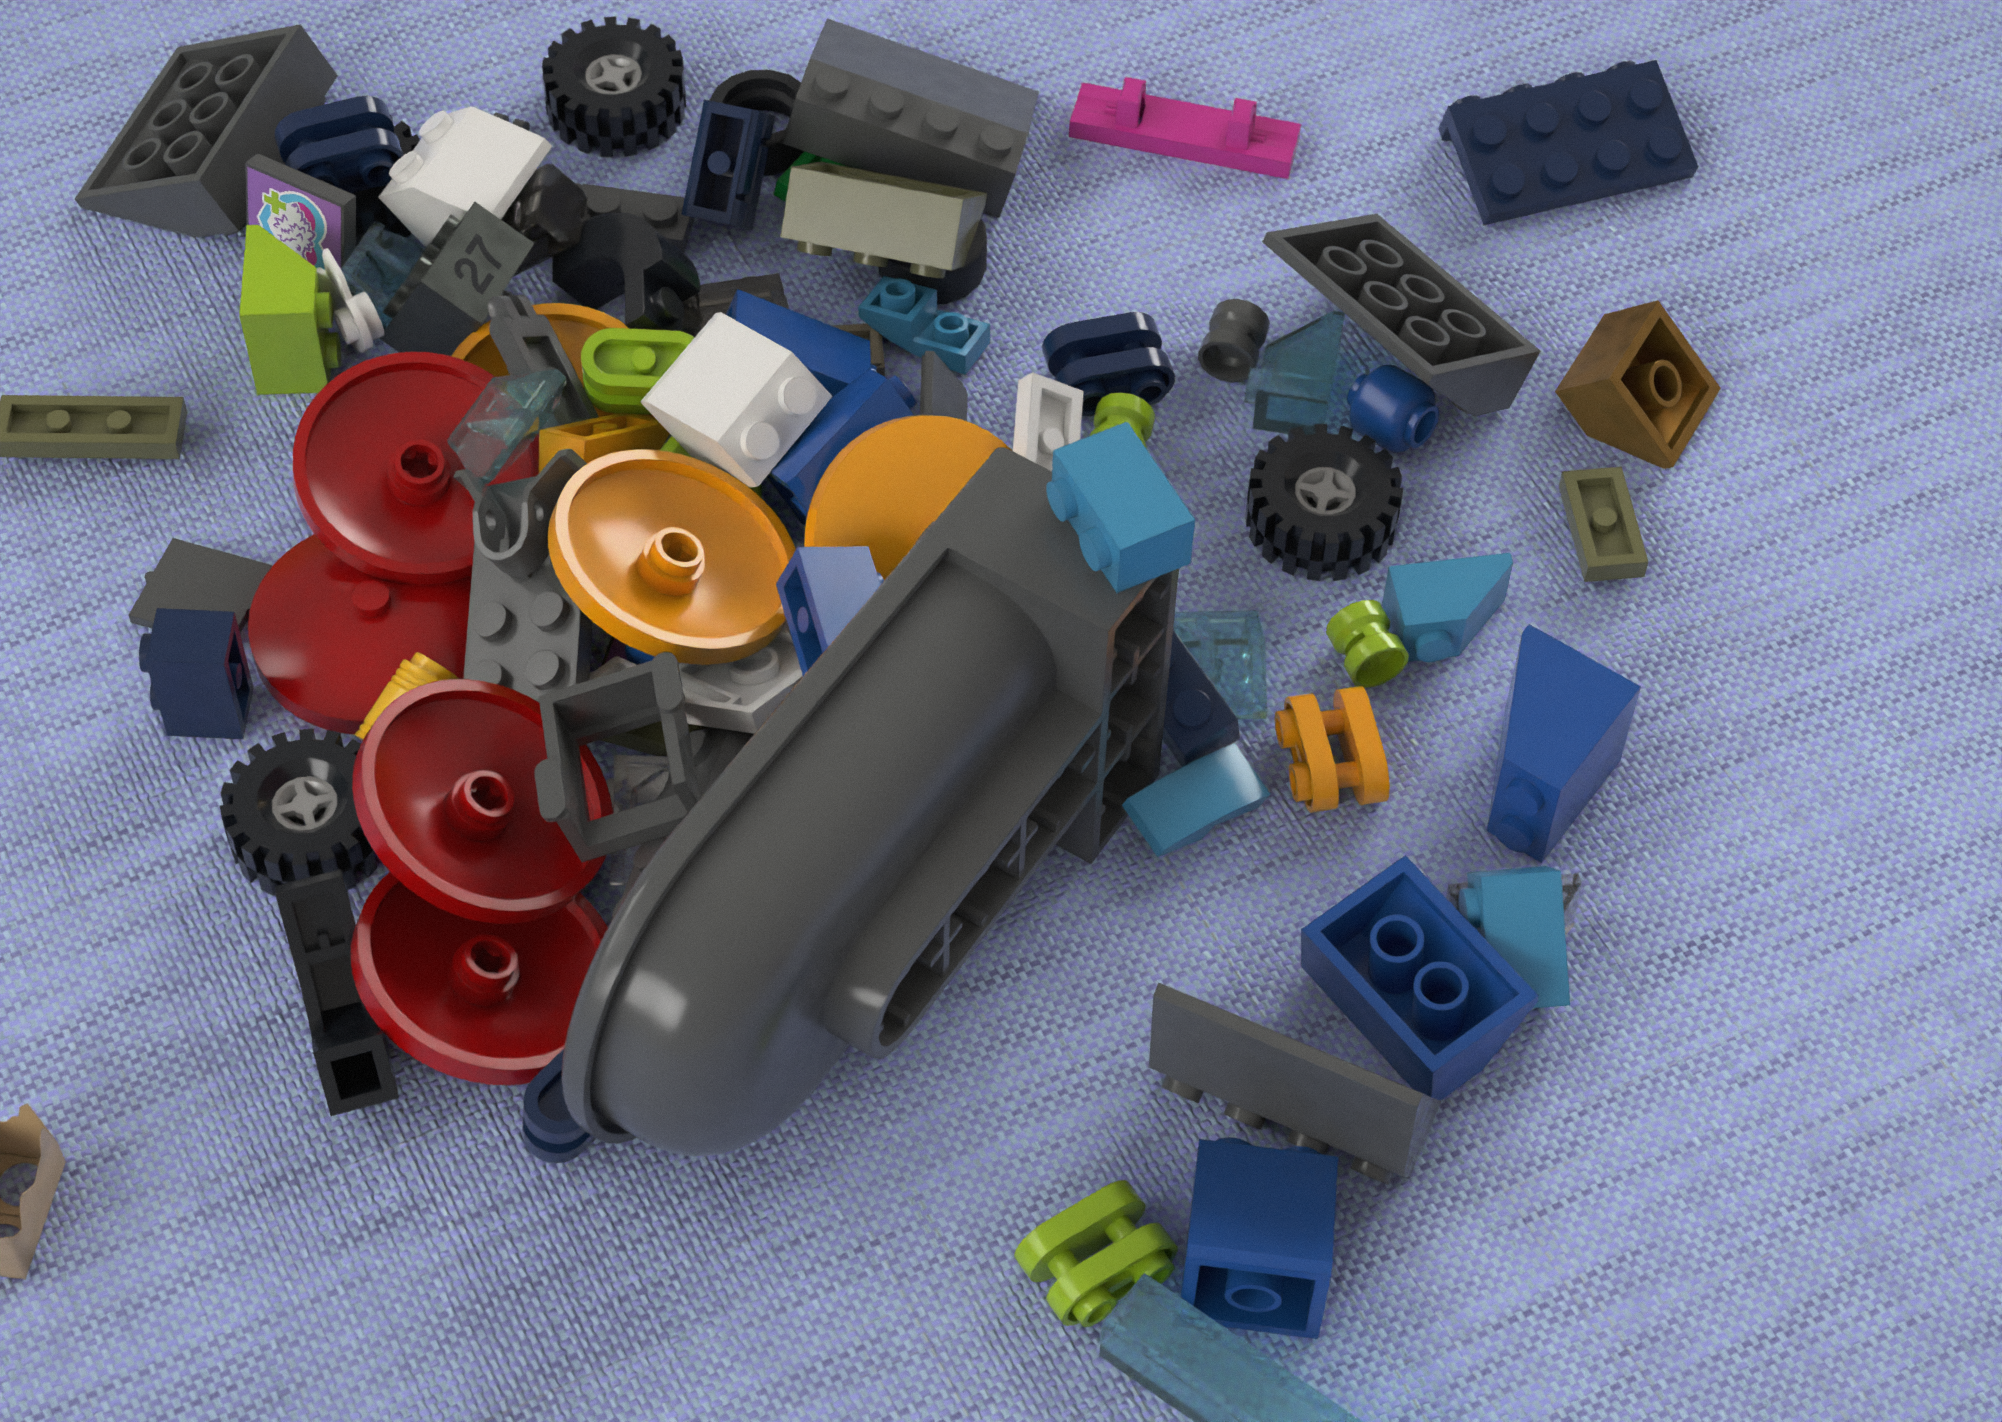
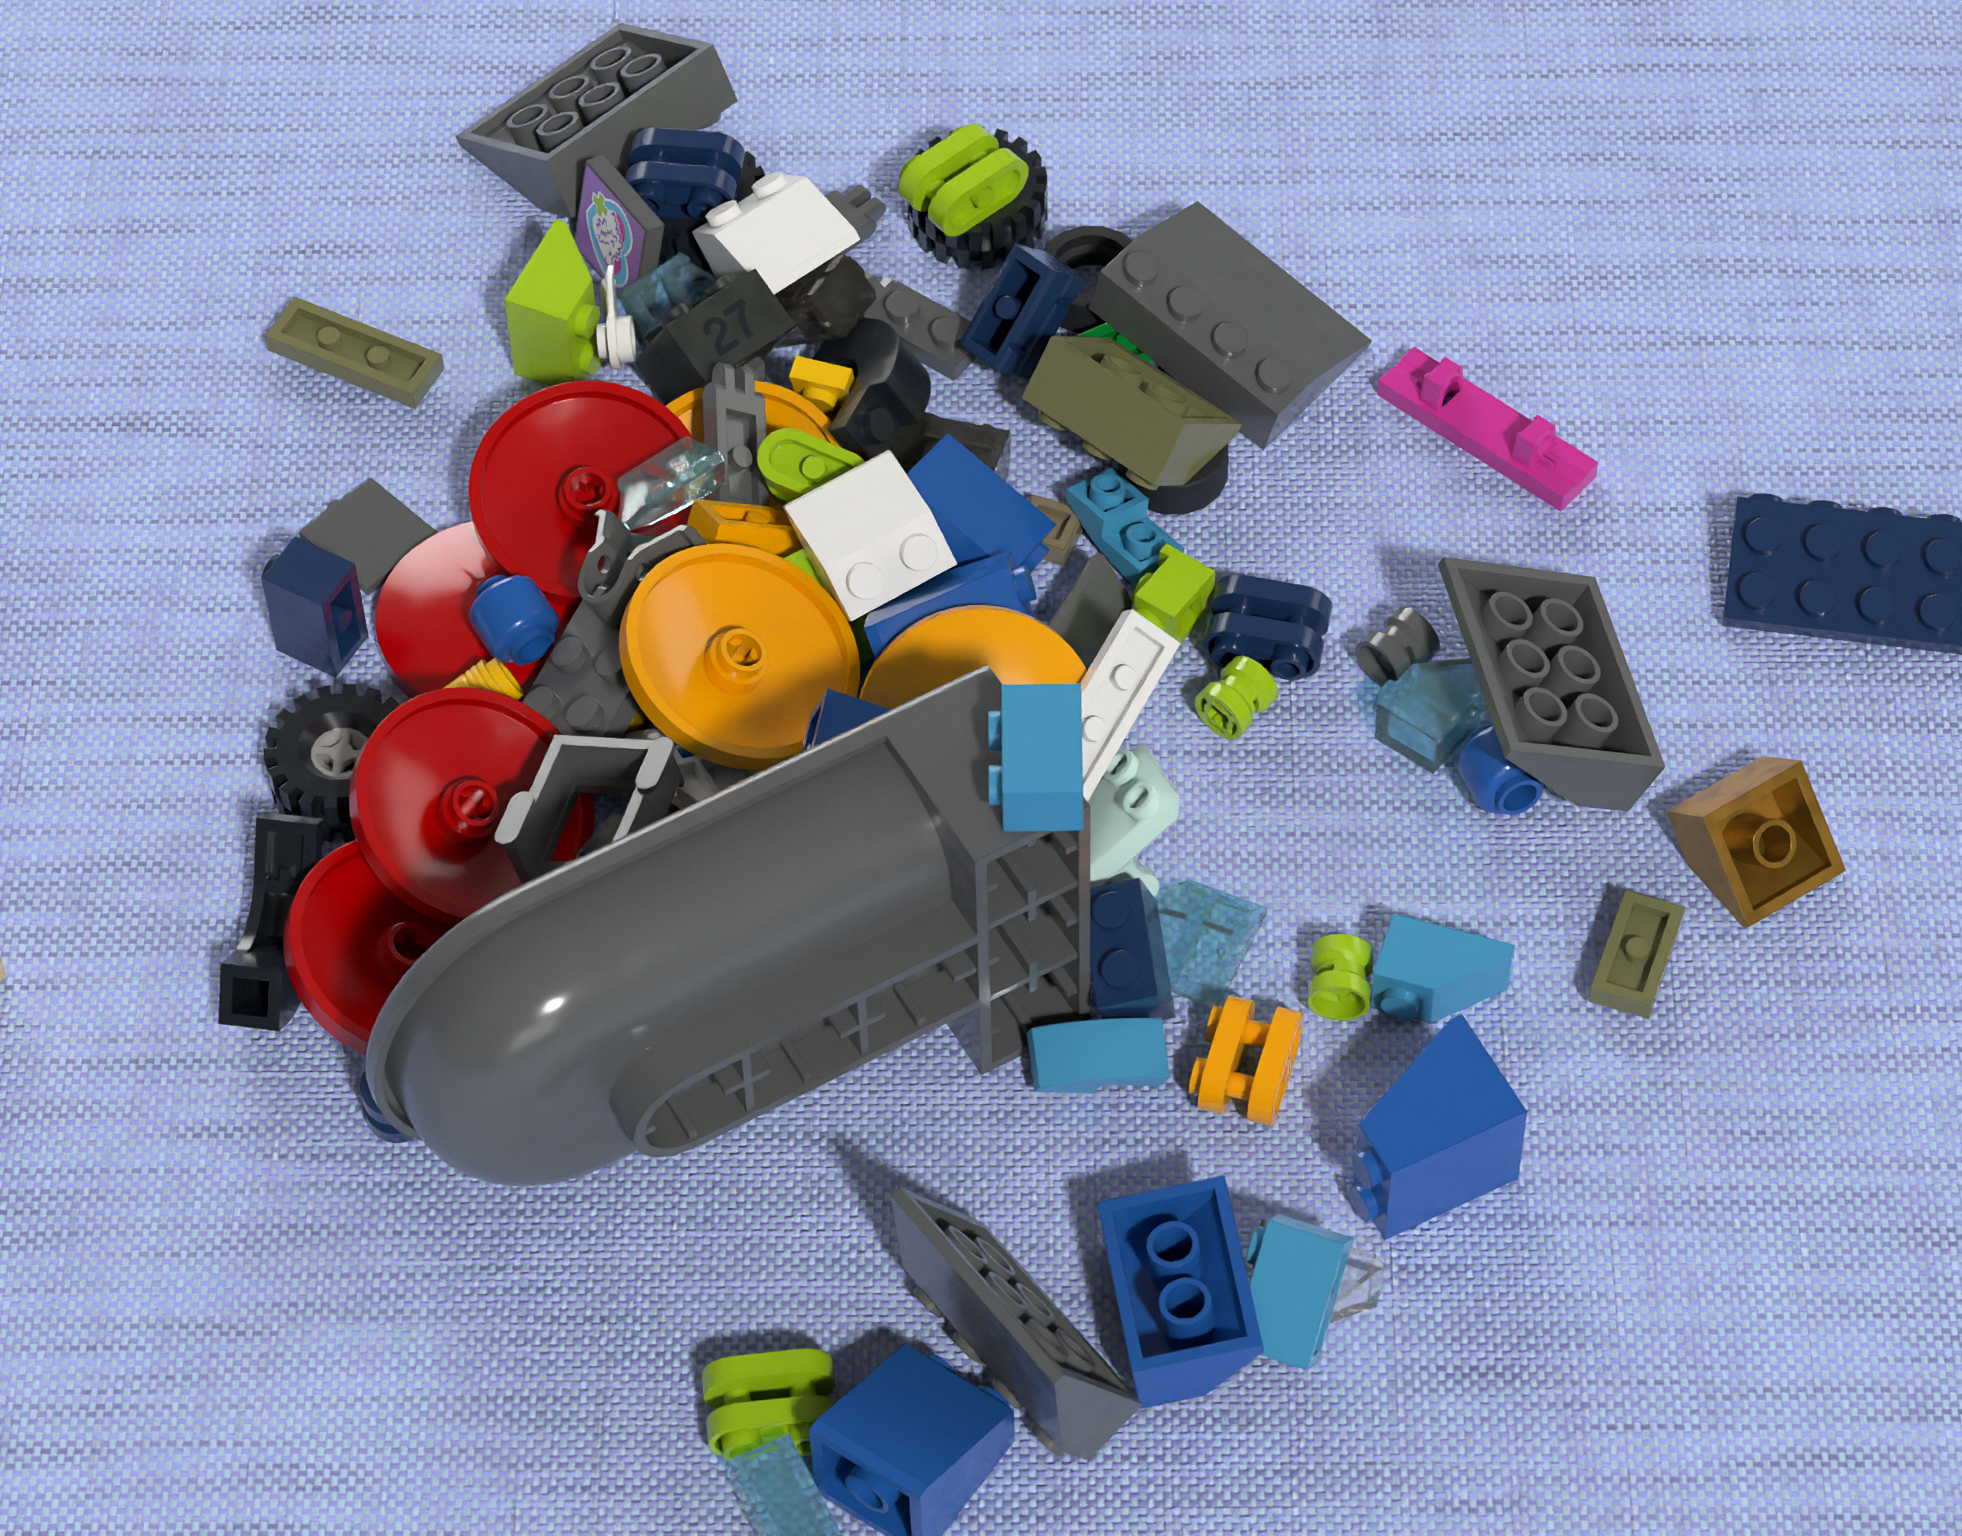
camera: 30 degrees right, 0 degrees up
(415, 609) = (513, 619): none -> blue head
(592, 287) = (822, 384): none -> yellow plate
(607, 66) = (962, 179): none -> lime brick
(1005, 357) = (1176, 594): none -> lime brick
(1318, 472) = (1377, 803): black wheel -> none

